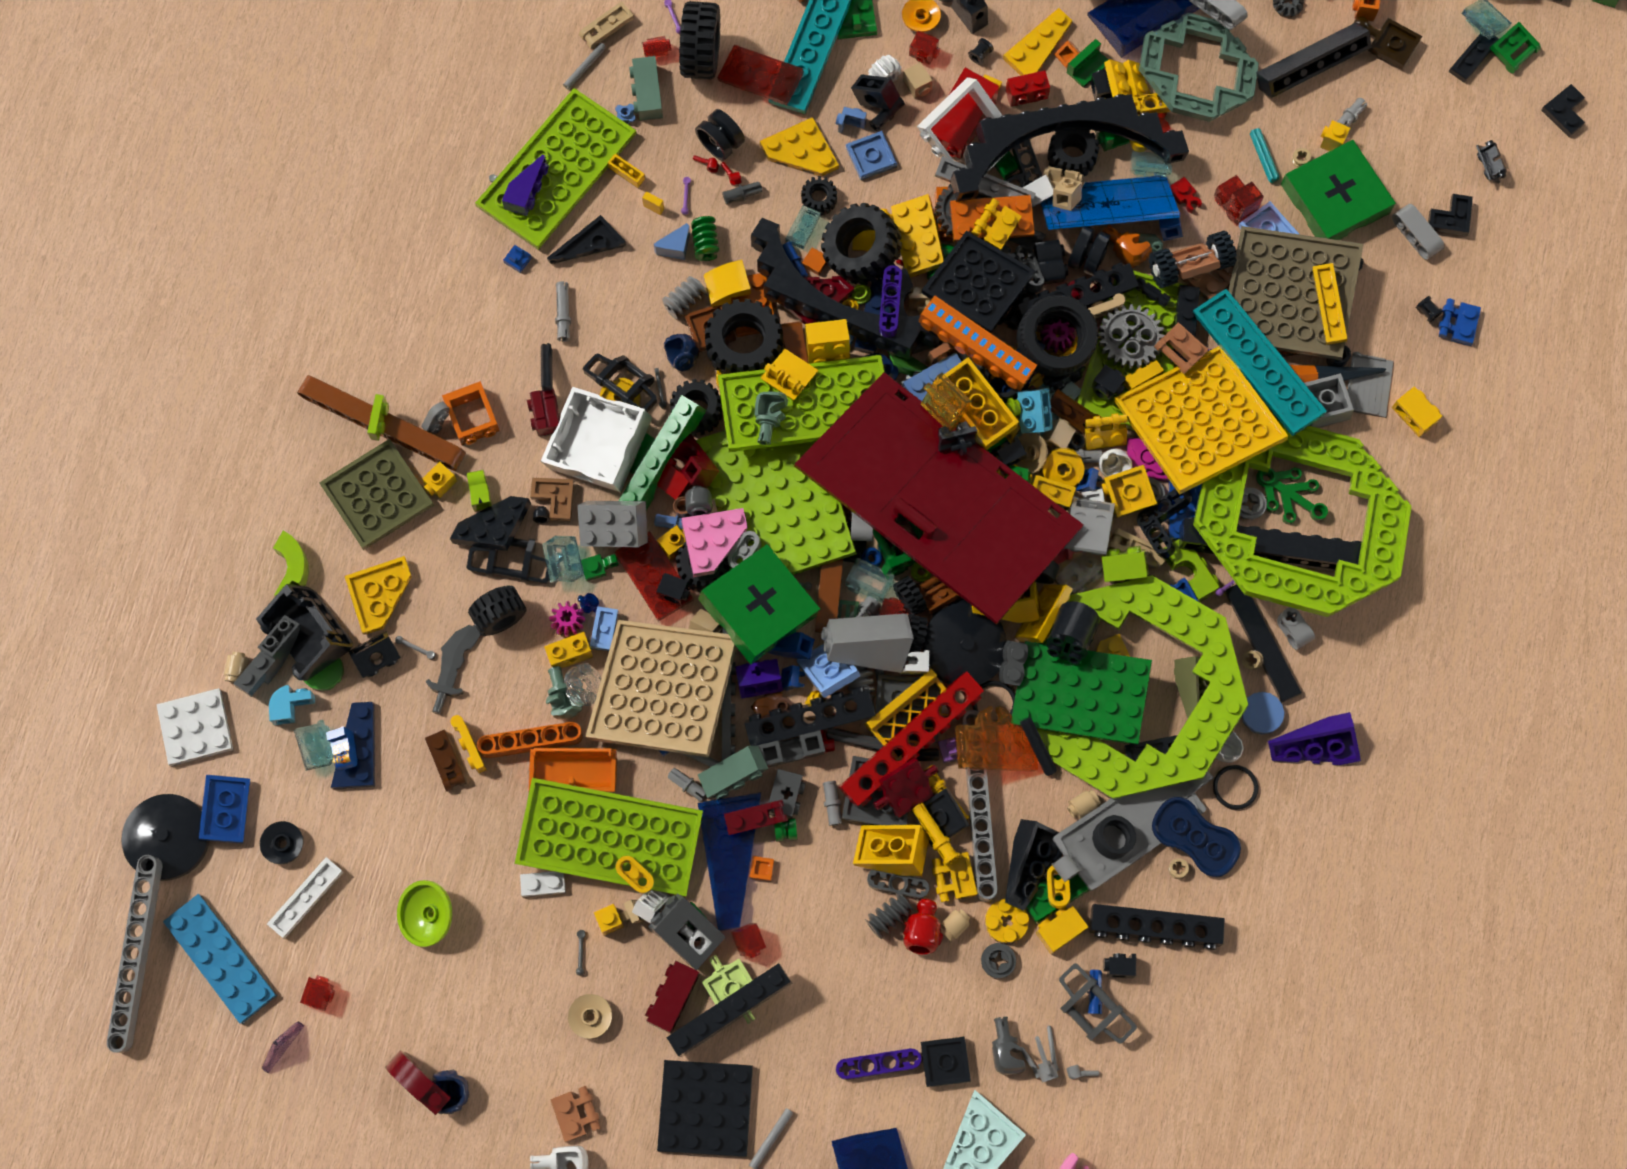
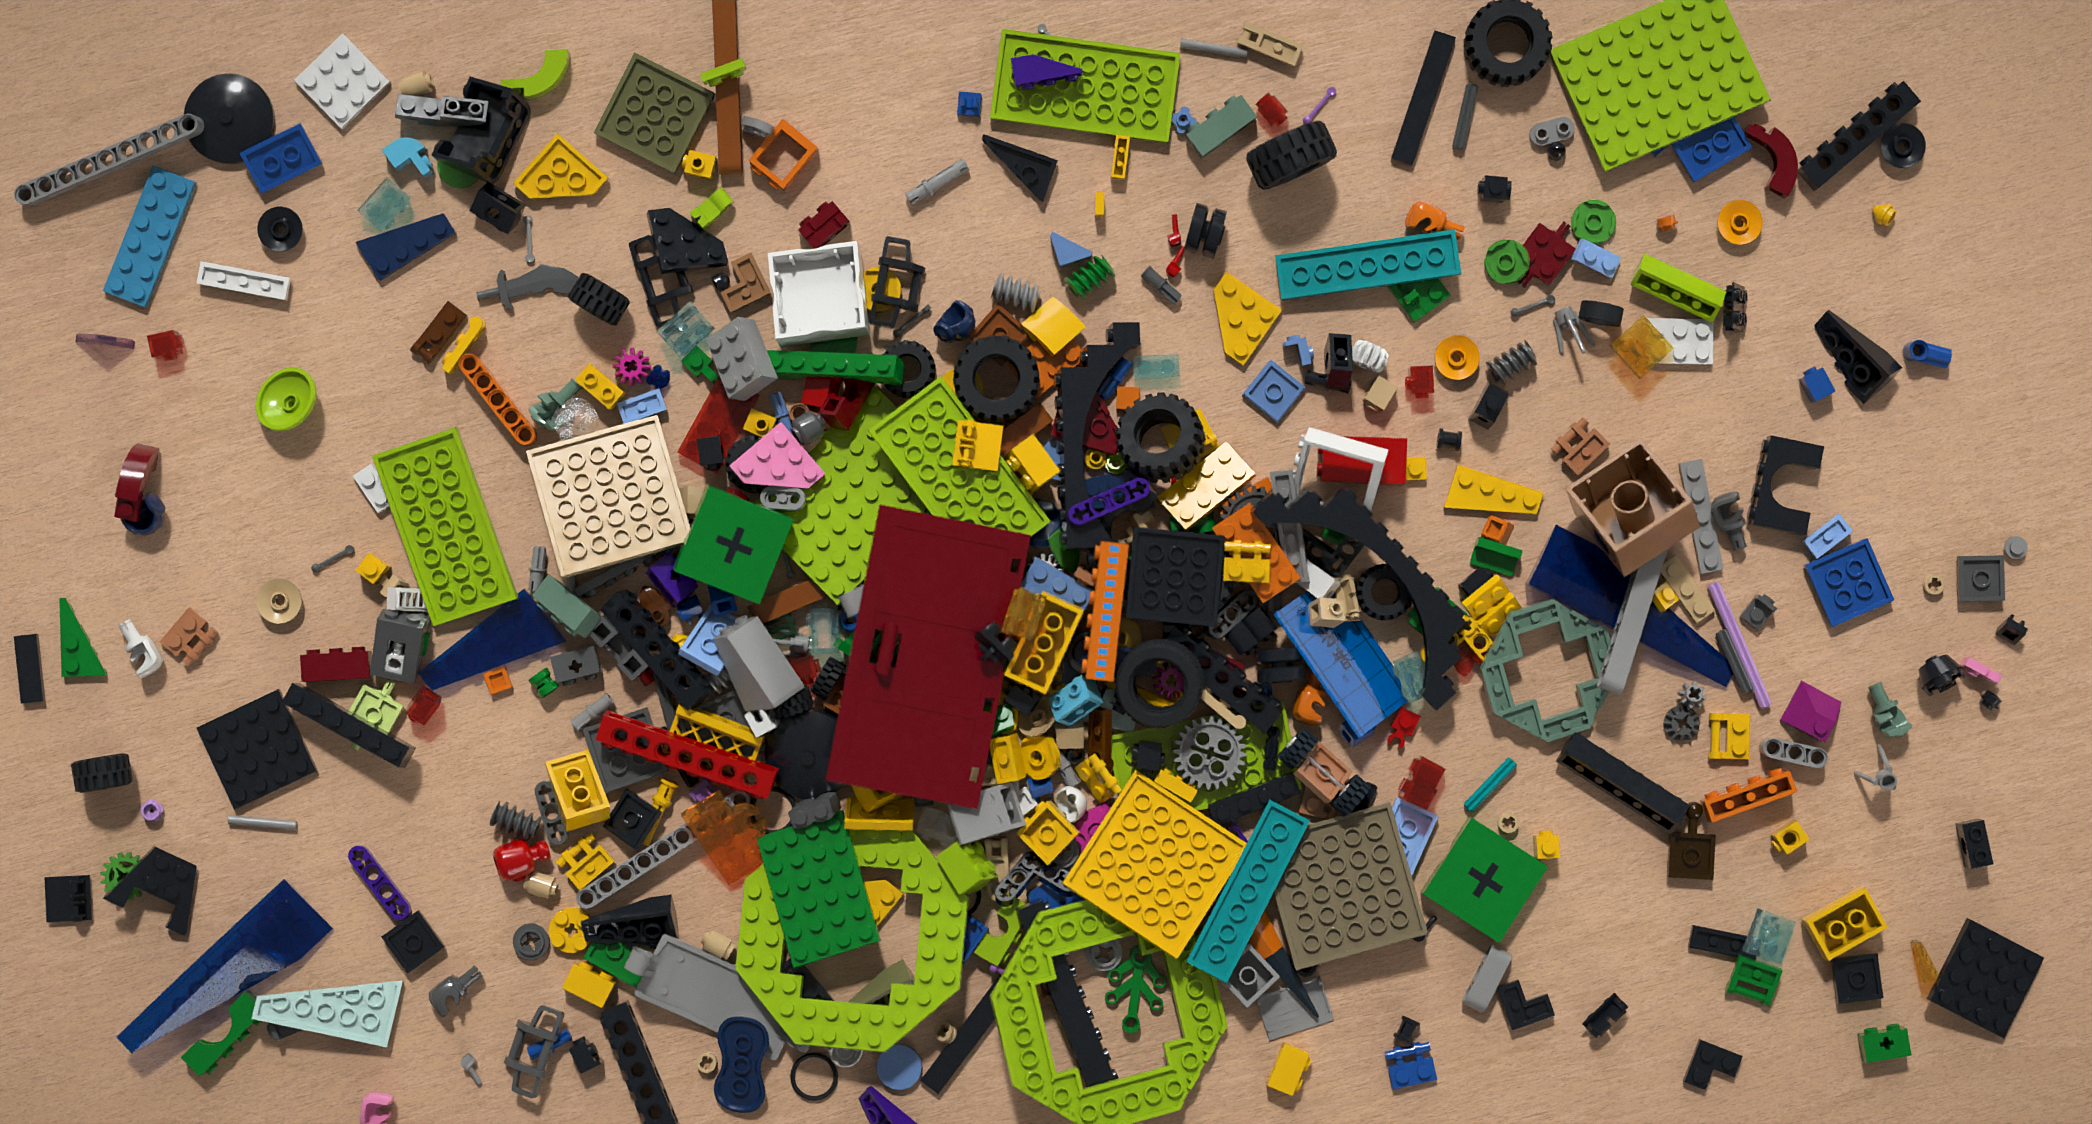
camera: 60 degrees right, 15 degrees up
(343, 748) = (392, 234): blue leg -> none
(546, 367) = (868, 201): black axle -> none
(576, 766) = (491, 458): orange container -> none
(634, 874) = (422, 569): yellow plate -> none
(686, 181) = (1144, 223): medium lavender hinge -> none
(754, 817) = (536, 650): dark red plate -> none
(760, 74) = (1297, 232): clear red plate -> none
(768, 413) = (918, 448): sand green piece -> none
(823, 185) = (1205, 351): black tyre -> none
(906, 787) = (638, 774): dark red plate -> none
(940, 842) = (606, 833): yellow pin -> none
(1014, 406) = (1065, 677): lime plate -> none
(1027, 88) = (1431, 510): red brick -> none
(1038, 746) = (747, 875): black axle -> none
(1047, 1070) = (455, 1035): light grey plant -> none
(1057, 887) = (620, 958): yellow plate -> none
(1073, 632) = (865, 853): black cylinder -> none
(1126, 828) = (698, 1006): black tyre -> none
(1155, 242) = (1332, 719): sand green arm -> none
(1183, 343) = (1227, 809): nougat plate -> none
(1296, 630) = (994, 1062): light grey piece -> none
(1329, 304) = (1343, 931): yellow plate -> none
(1351, 114) = (1583, 849): light grey pin -> none

